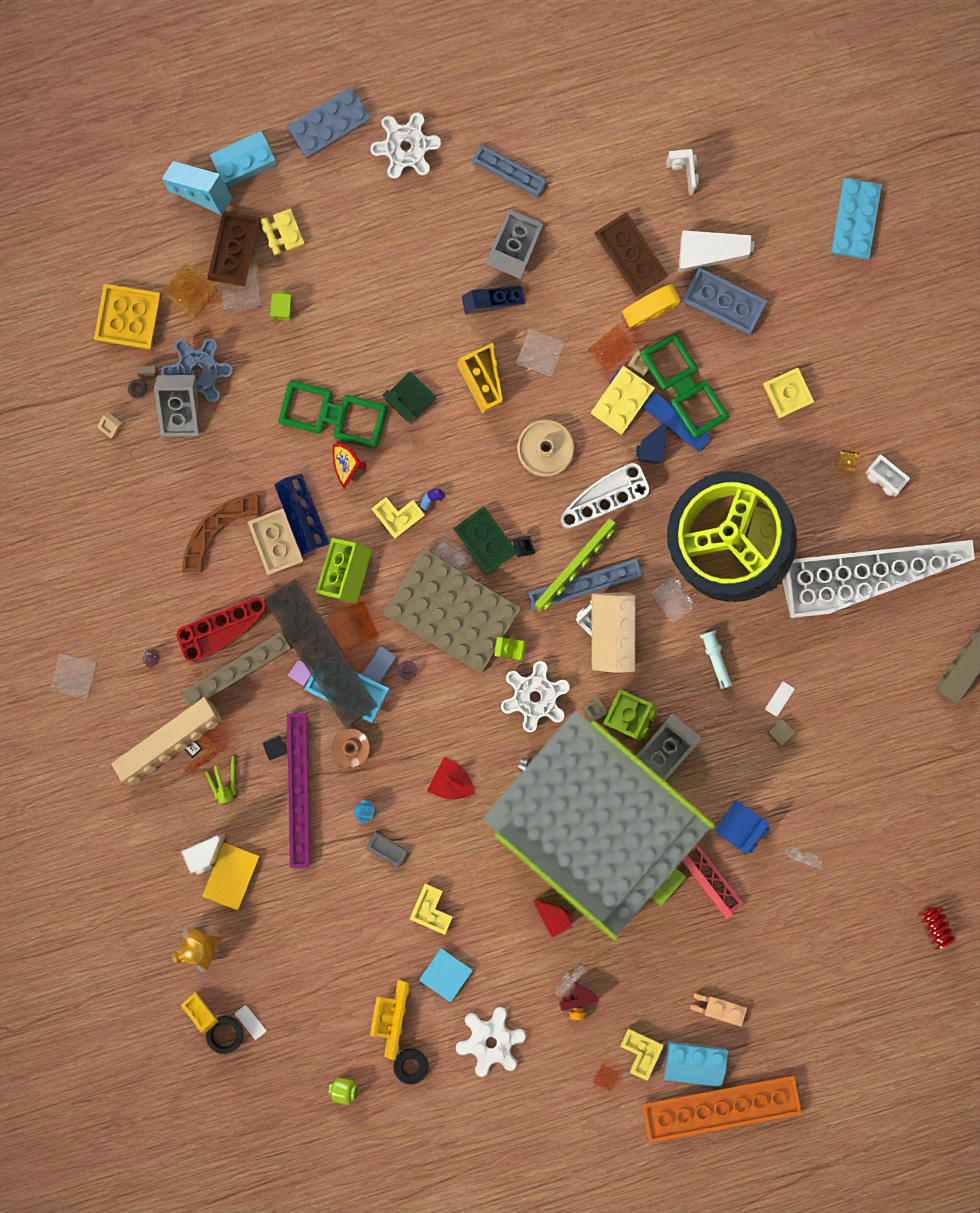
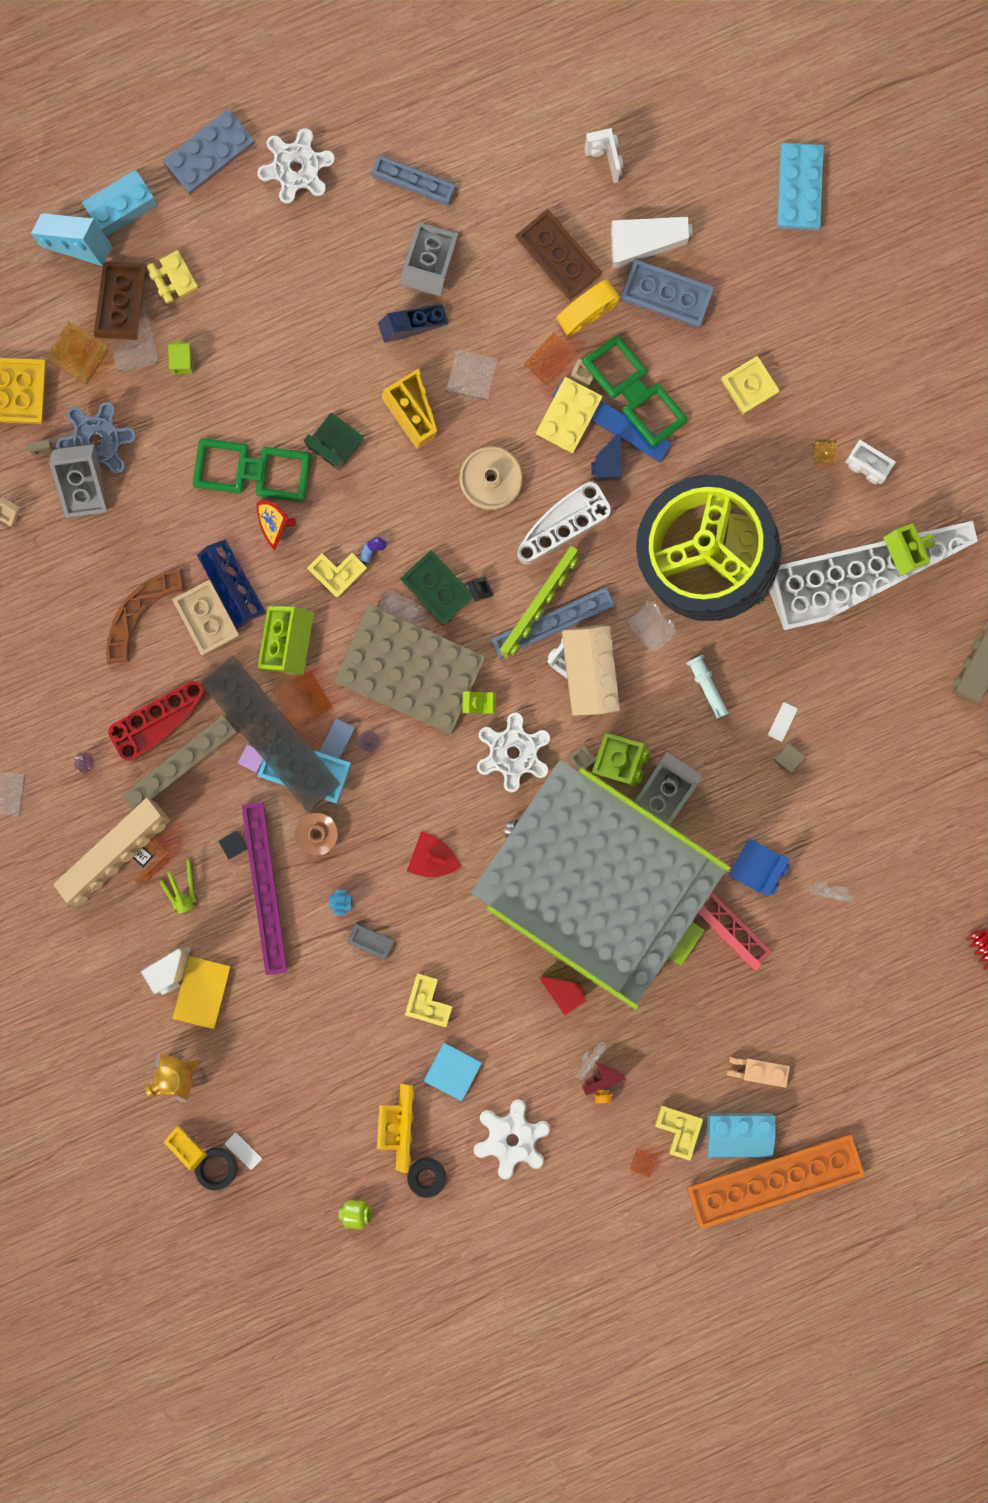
camera: 10 degrees left, 0 degrees up
(131, 389) = (27, 466): clear smoke plate -> none
(910, 559) = (908, 549): none -> lime brick

